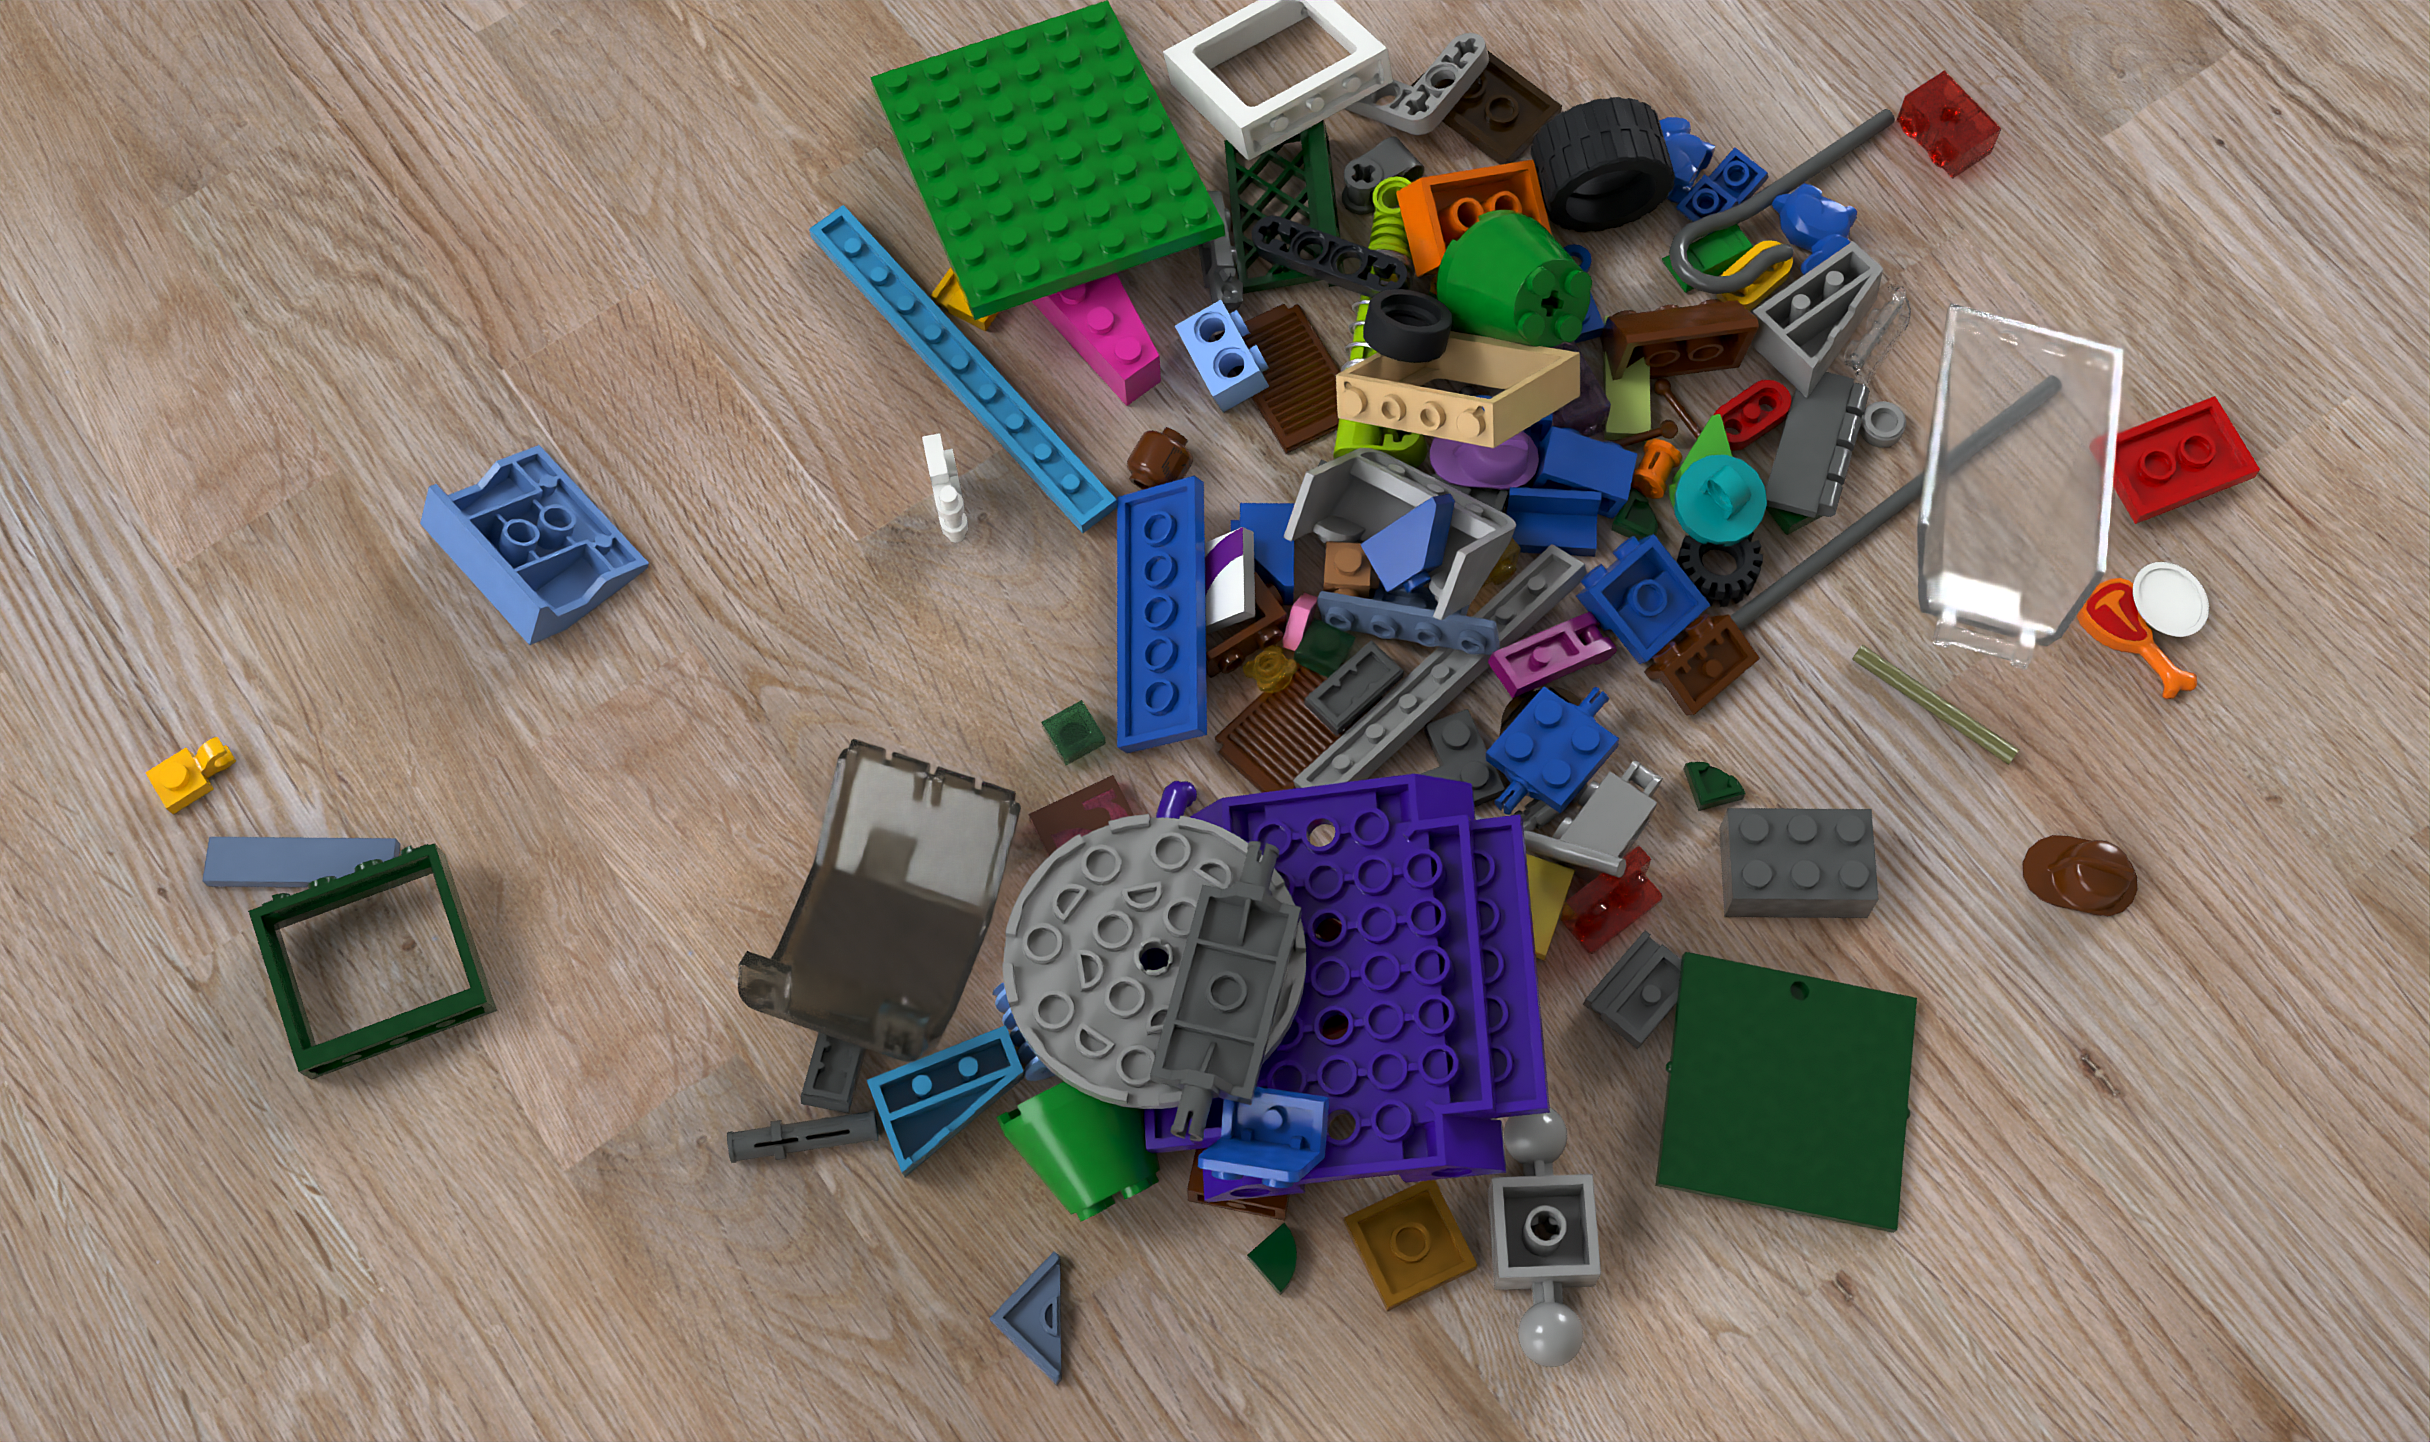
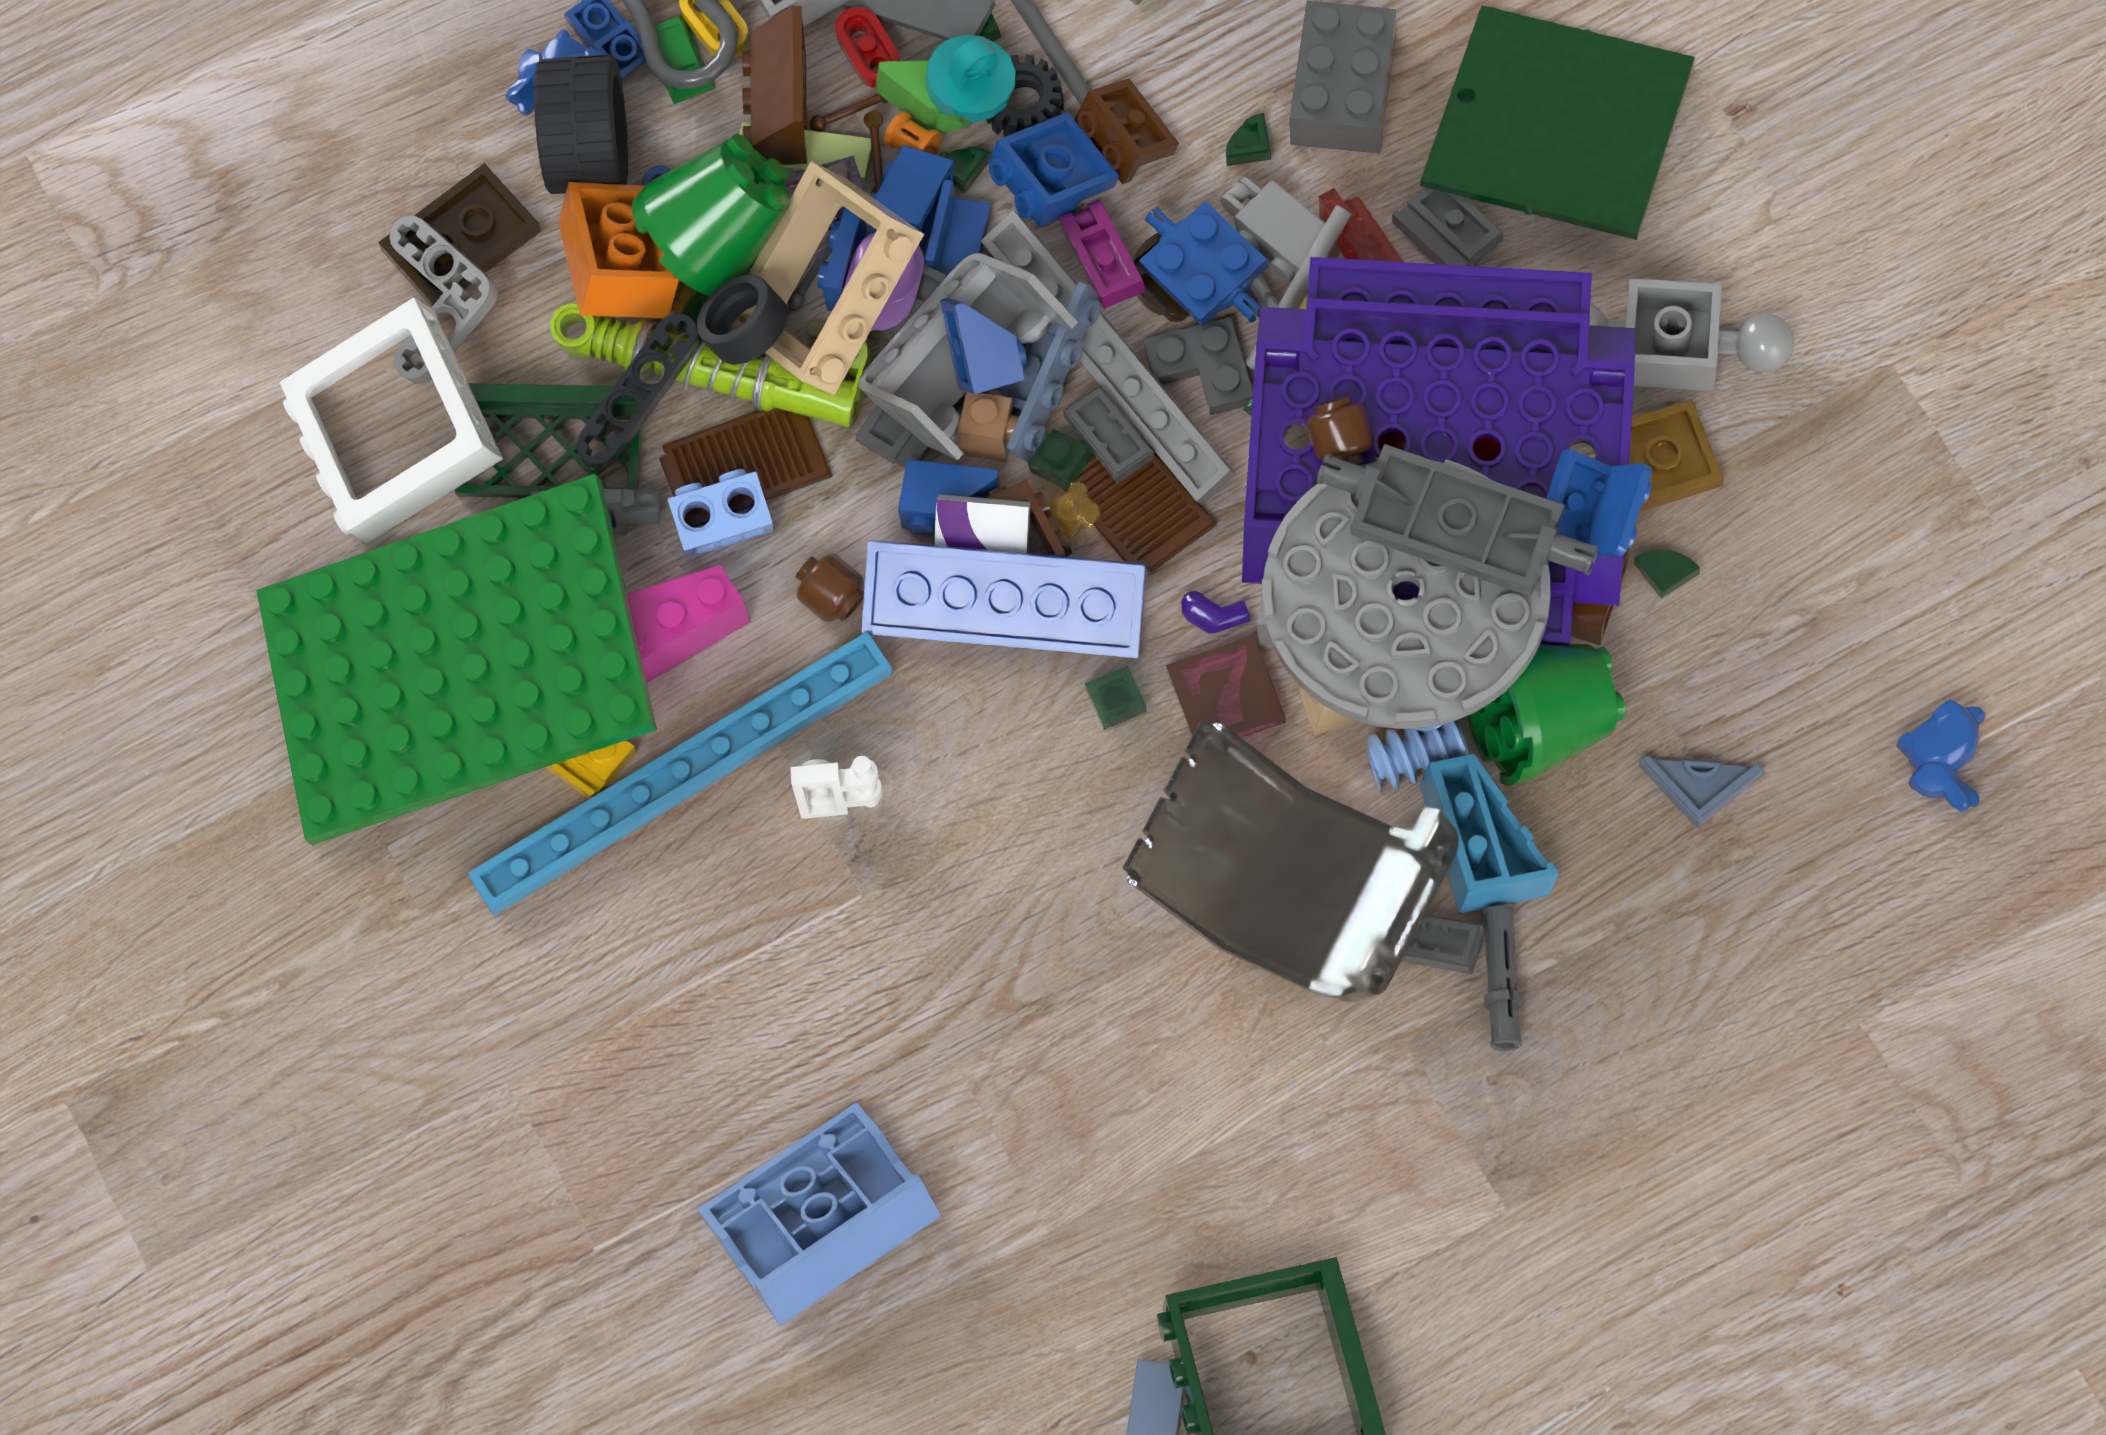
camera: 75 degrees left, 0 degrees up
(1299, 620) = (1022, 469): bright pink tile -> none
(1319, 867) = (1340, 430): none -> reddish brown head
(1364, 173) = (530, 344): dark grey piece -> none

